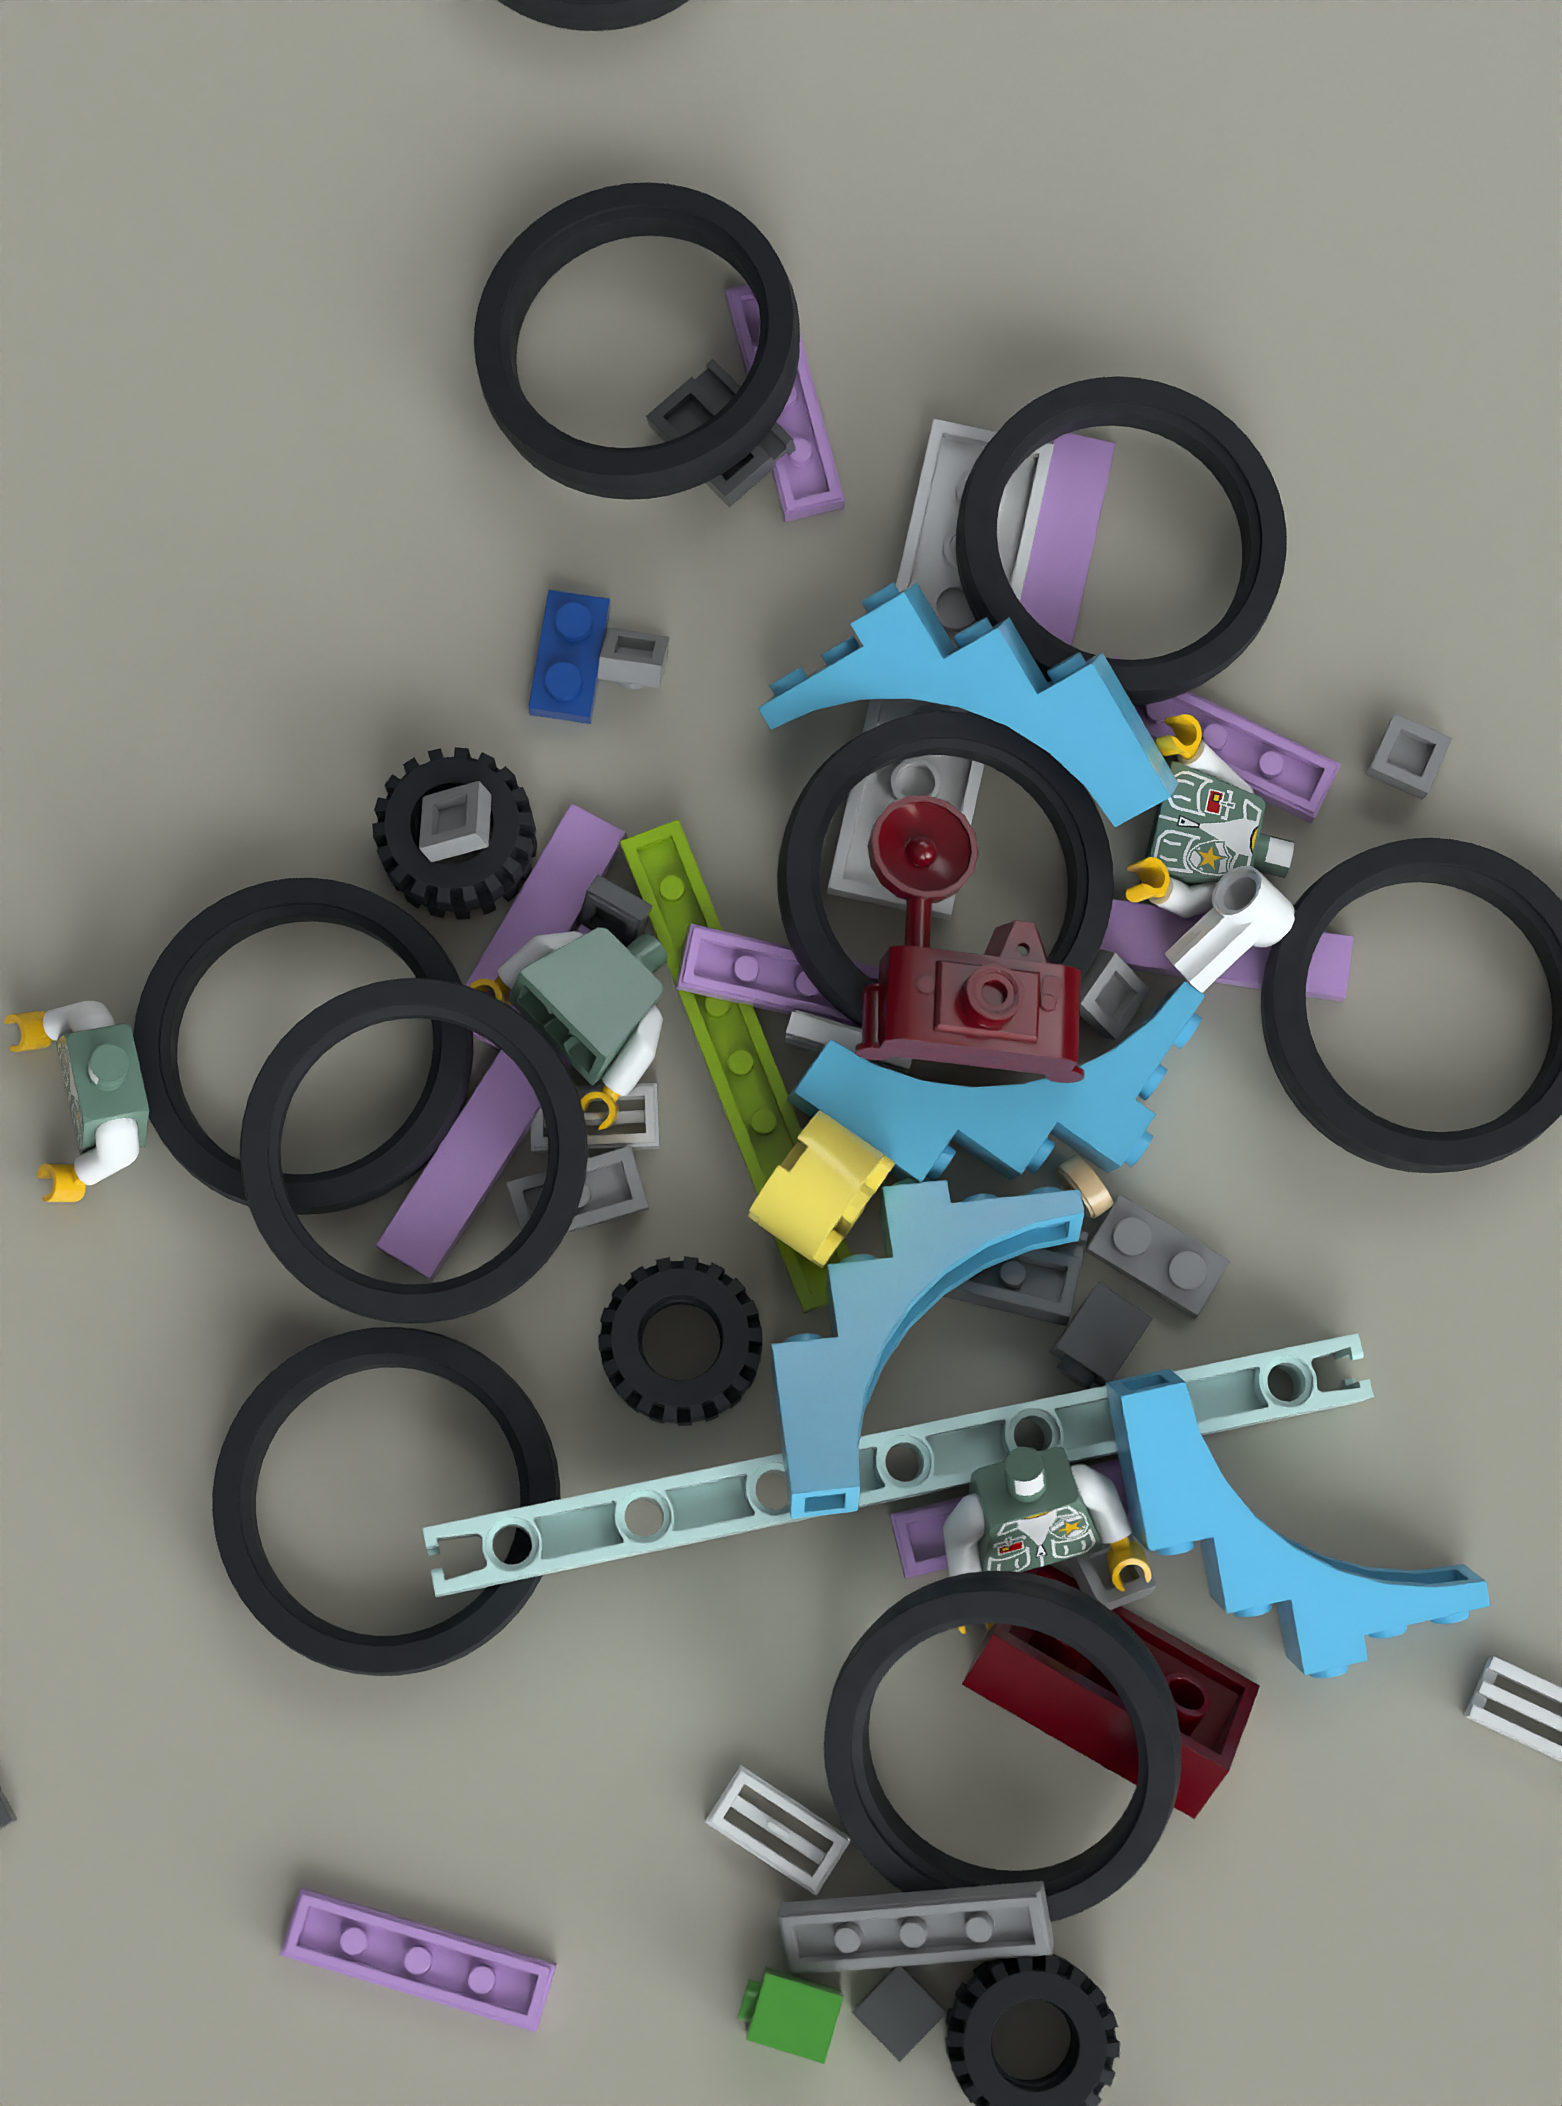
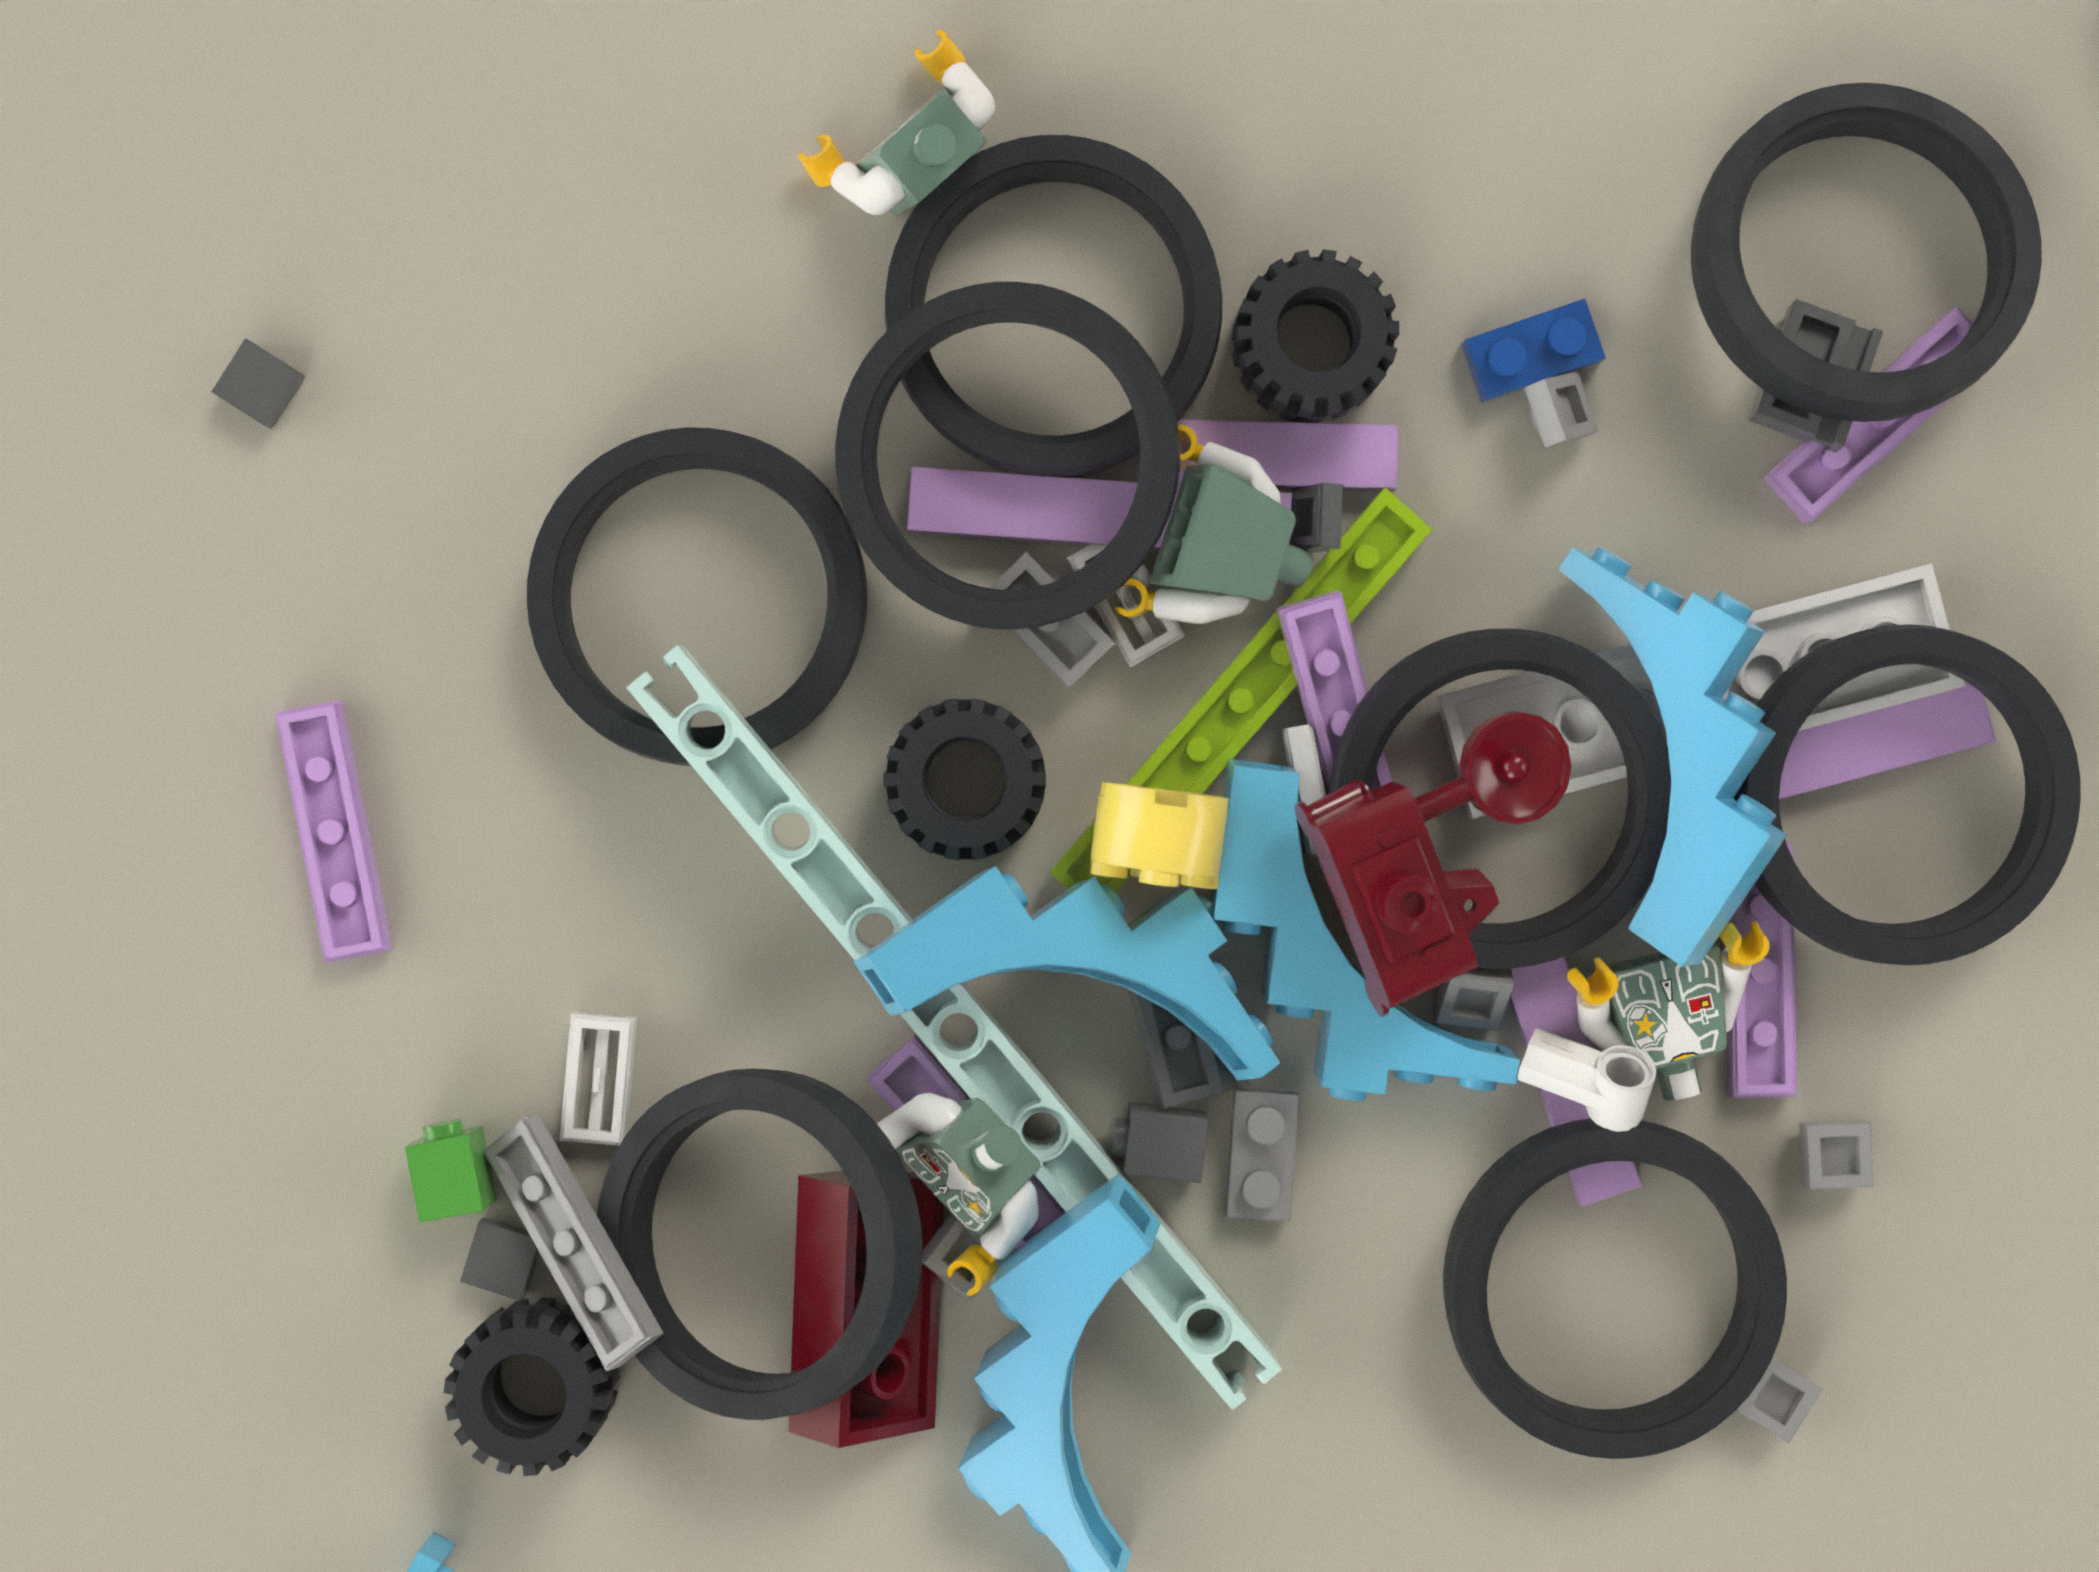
camera: 65 degrees right, 10 degrees up
(455, 821) = (1321, 332): light grey plate -> none
(1076, 1175) = (1293, 1054): tan tile -> none

